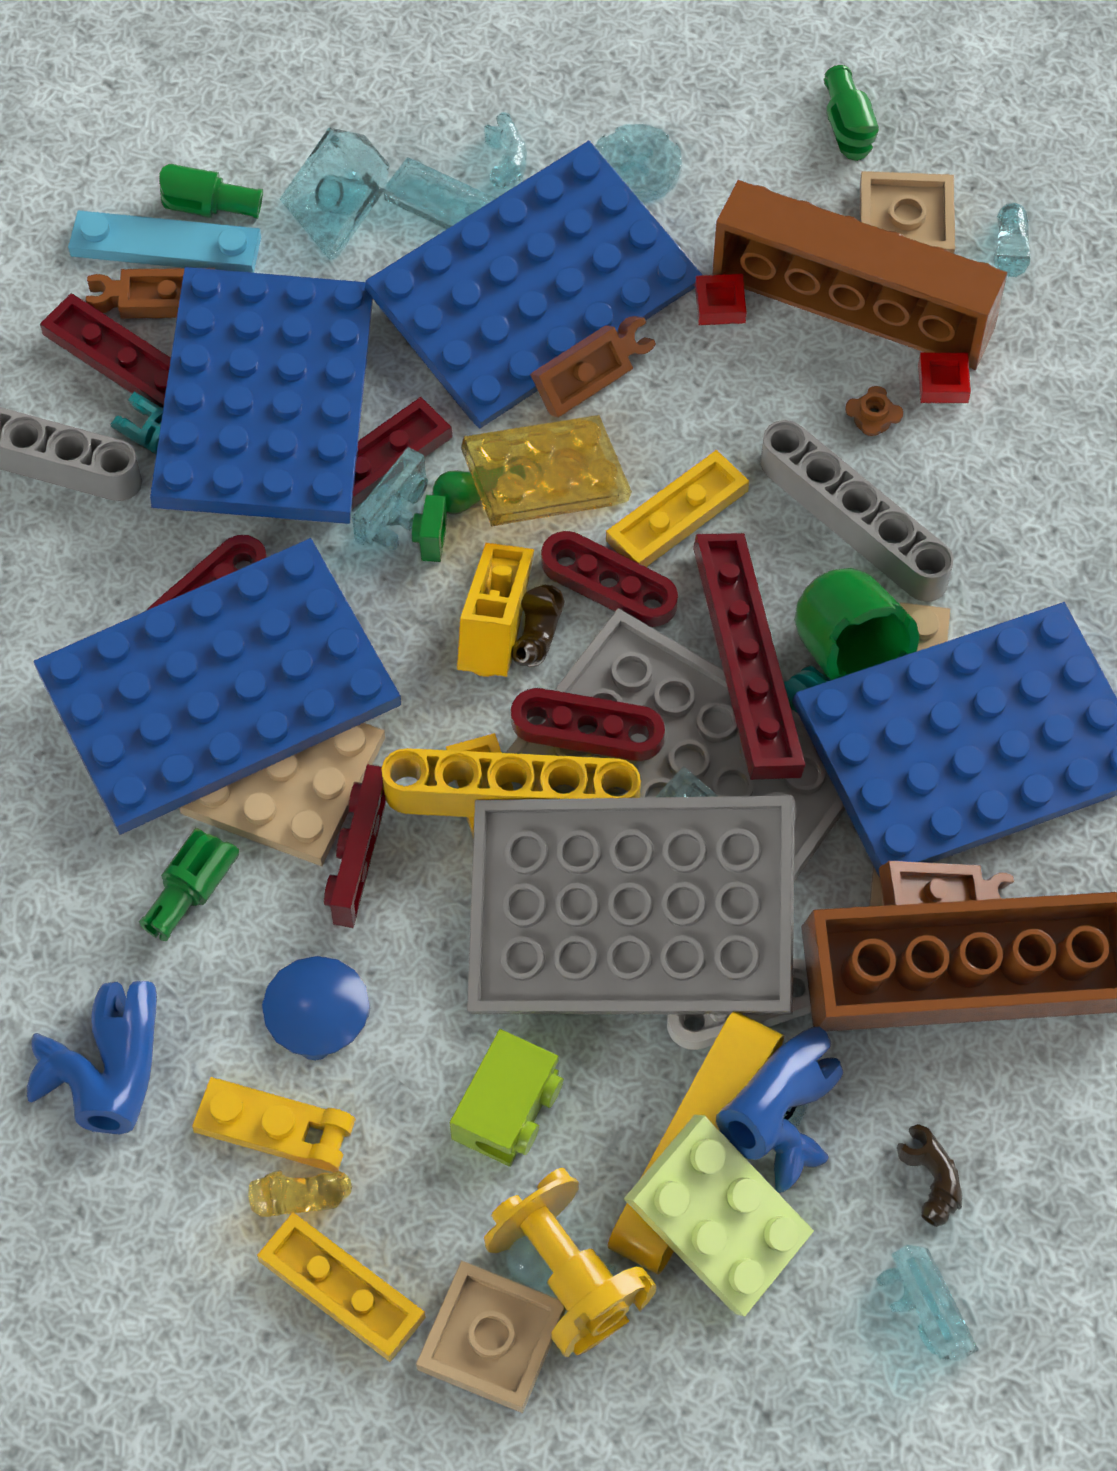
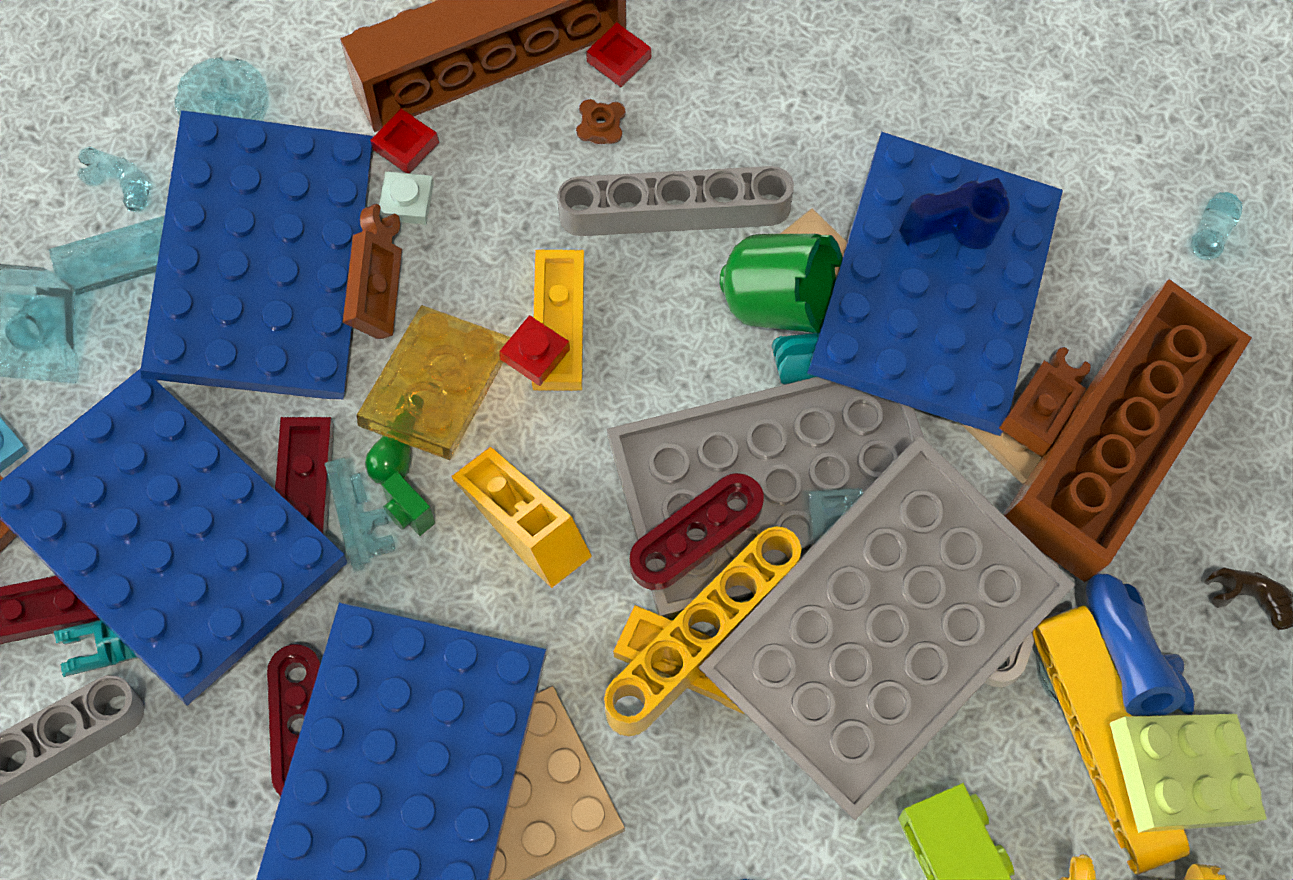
camera: 50 degrees left, 5 degrees up
(356, 848) = (640, 789): dark red plate -> none
(542, 611) = (557, 483): dark brown piece -> none
(595, 563) = (589, 399): dark red plate -> none
(630, 510) = (534, 350): none -> red plate
(678, 338) = (406, 196): none -> light aqua plate
(748, 657) = (739, 372): dark red plate -> none
(1030, 694) = (970, 213): none -> clear blue plate

